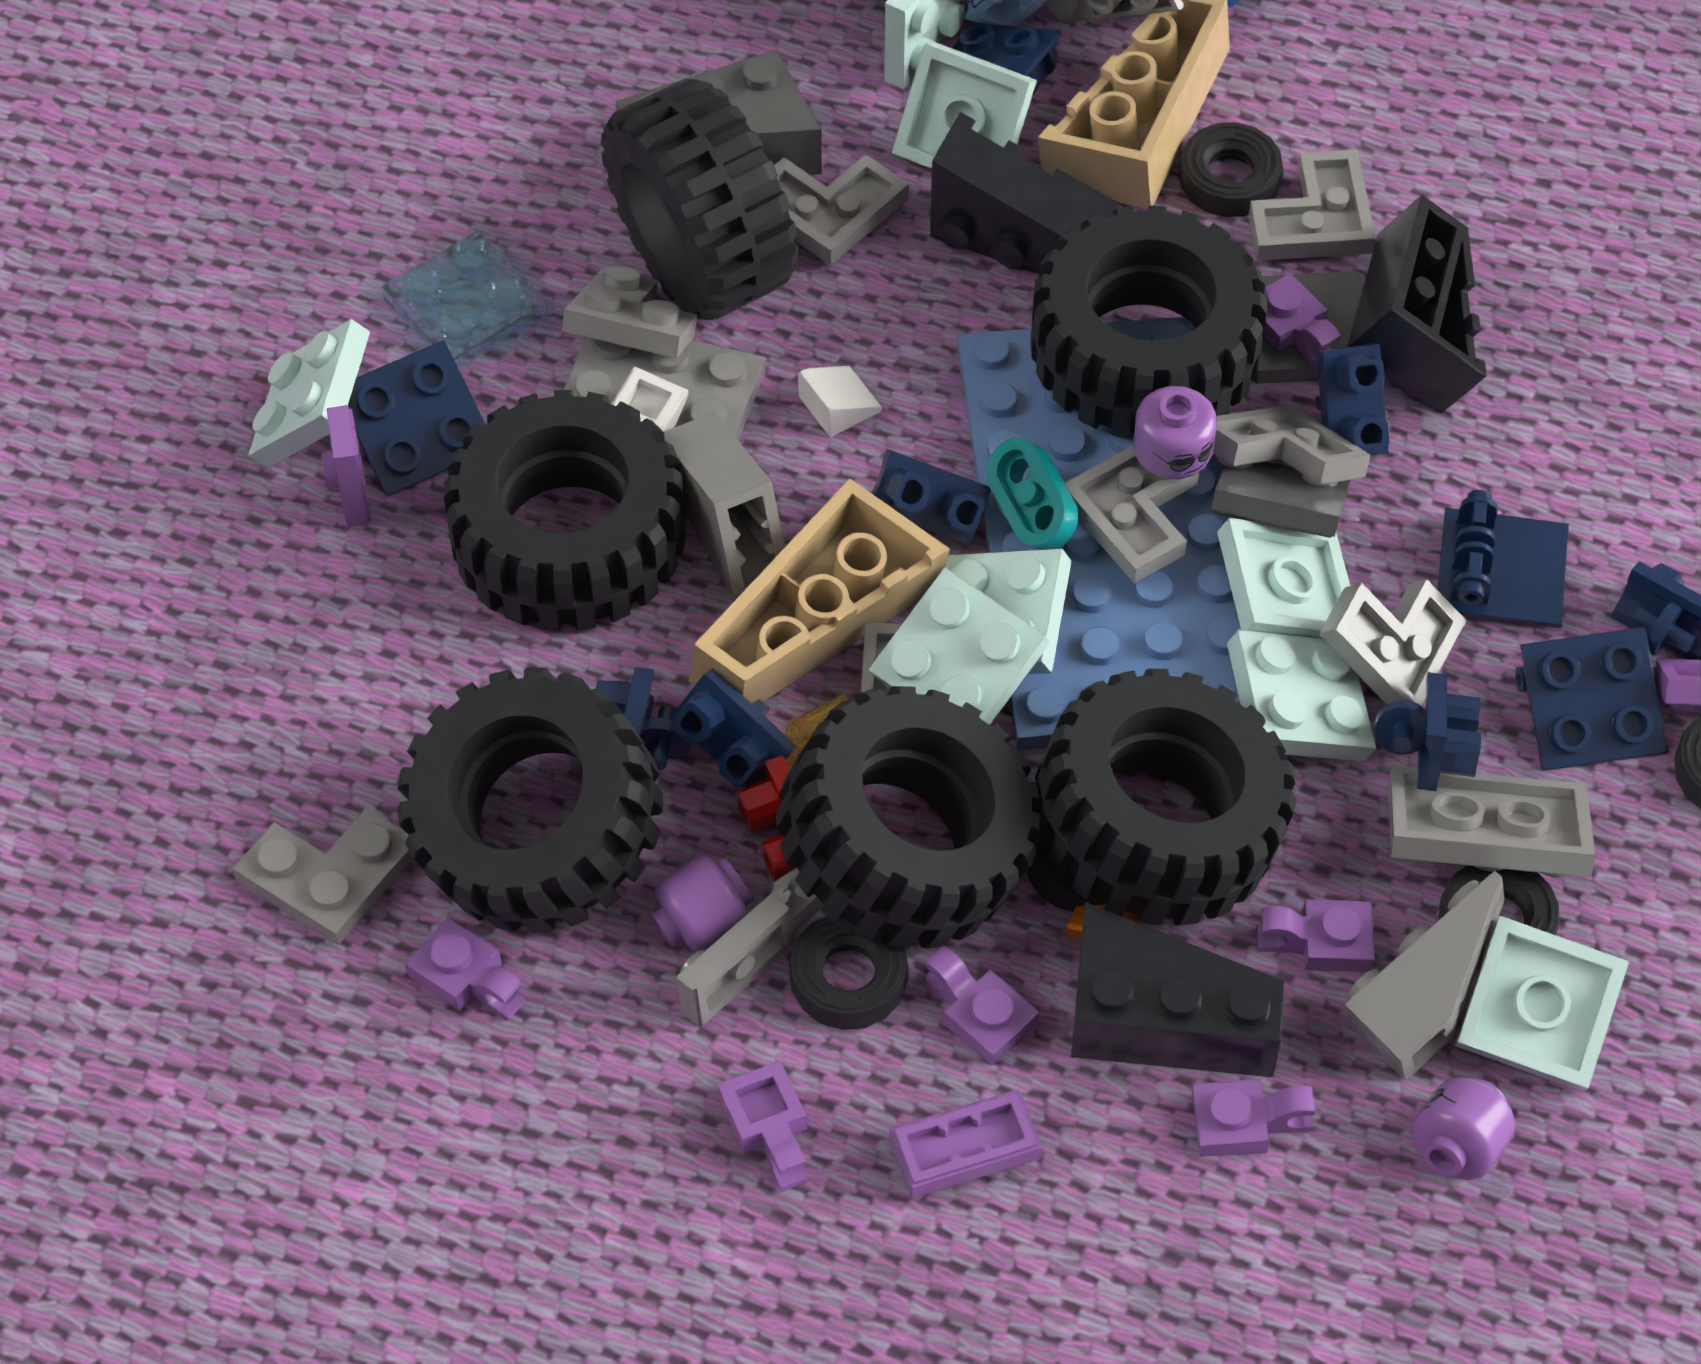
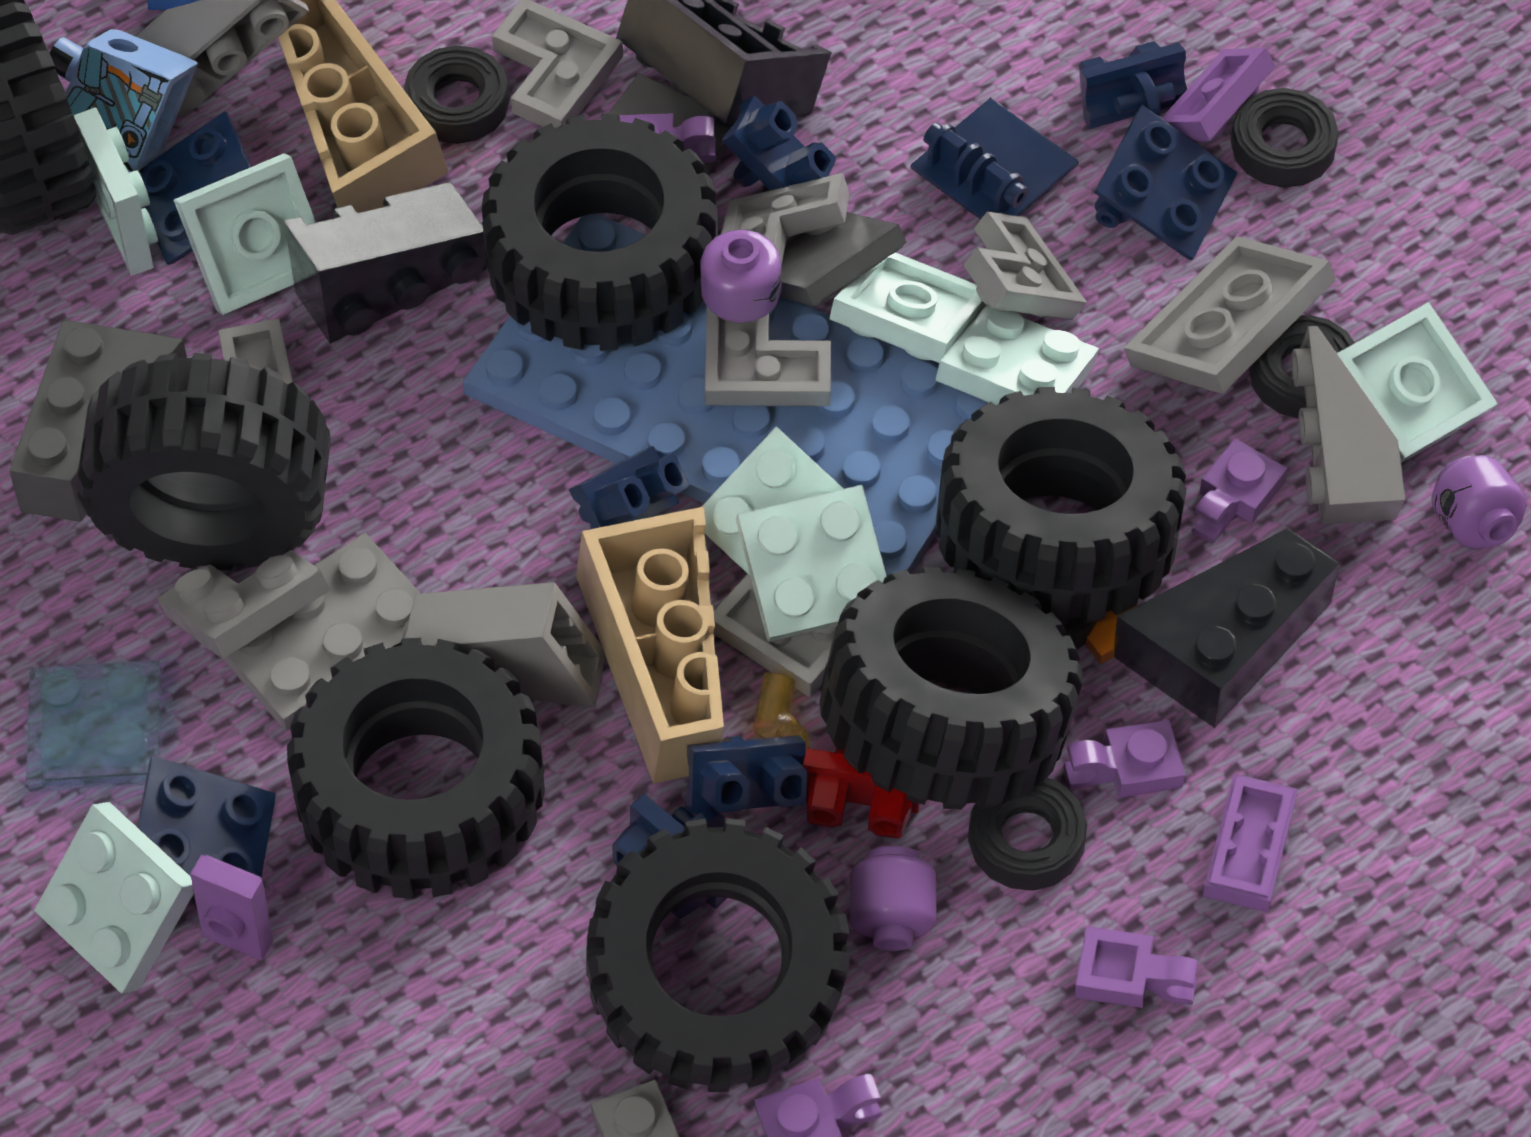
camera: 55 degrees left, 0 degrees up
(653, 397) = (352, 632): white slope -> none
(758, 939) = (966, 932): light grey hinge -> none
(836, 397) = (448, 508): white slope -> none
(1034, 500) = (695, 418): teal plate -> none
(1237, 1117) = (1357, 645): medium lavender plate -> none
(1441, 733) = (1126, 299): dark blue hips -> none

